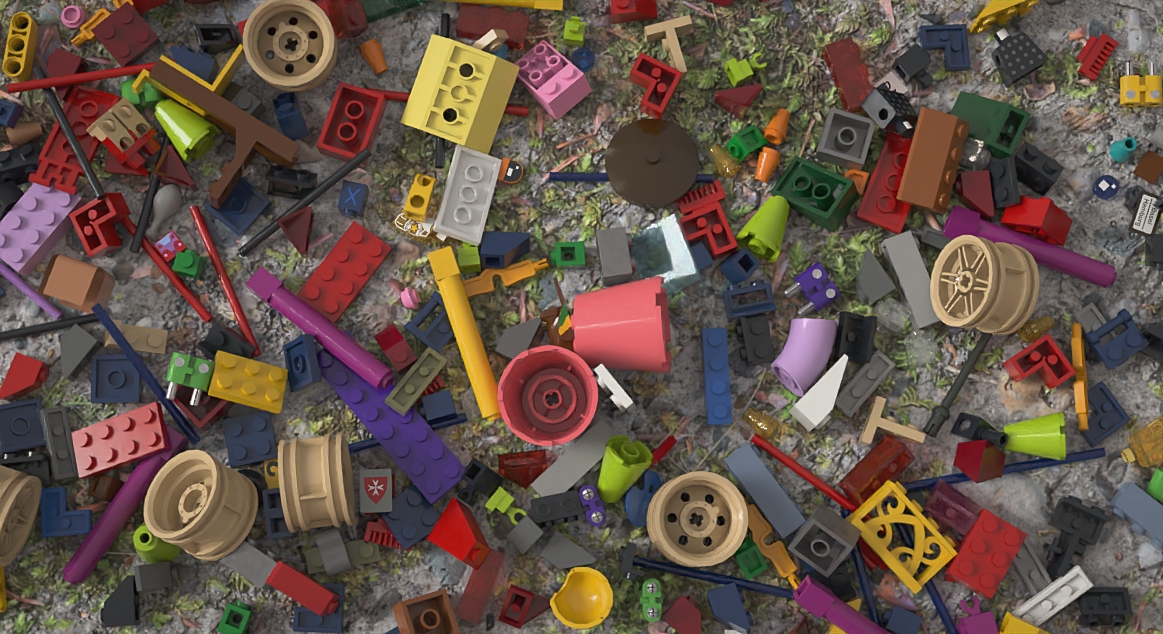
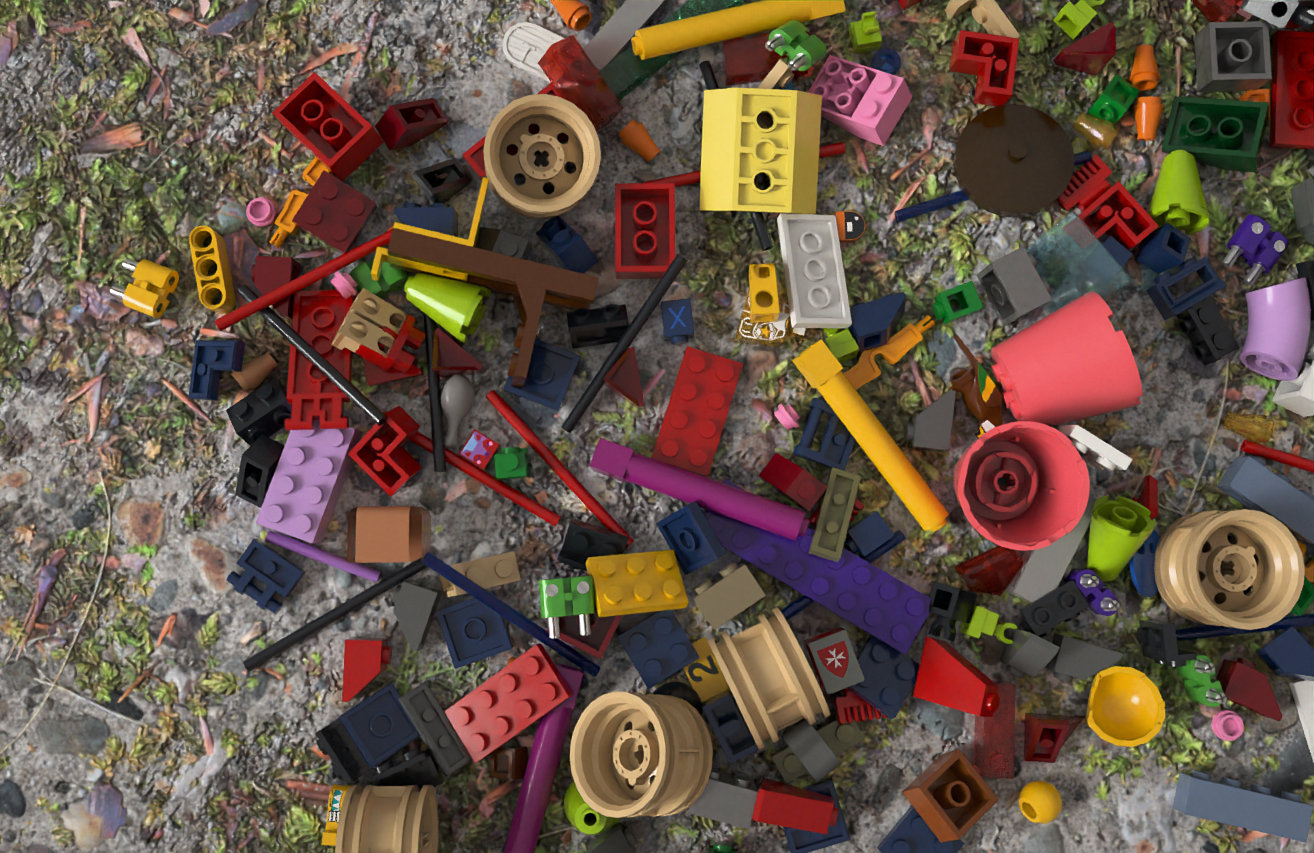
camera: 15 degrees left, 5 degrees up
(57, 520) = (469, 821): blue tile -> none
(113, 90) = (344, 284): none -> bright pink plate
(313, 414) = (728, 594): none -> dark tan brick
(510, 20) = (794, 41): none -> bright green piece
(716, 377) = (1181, 391): blue brick -> none

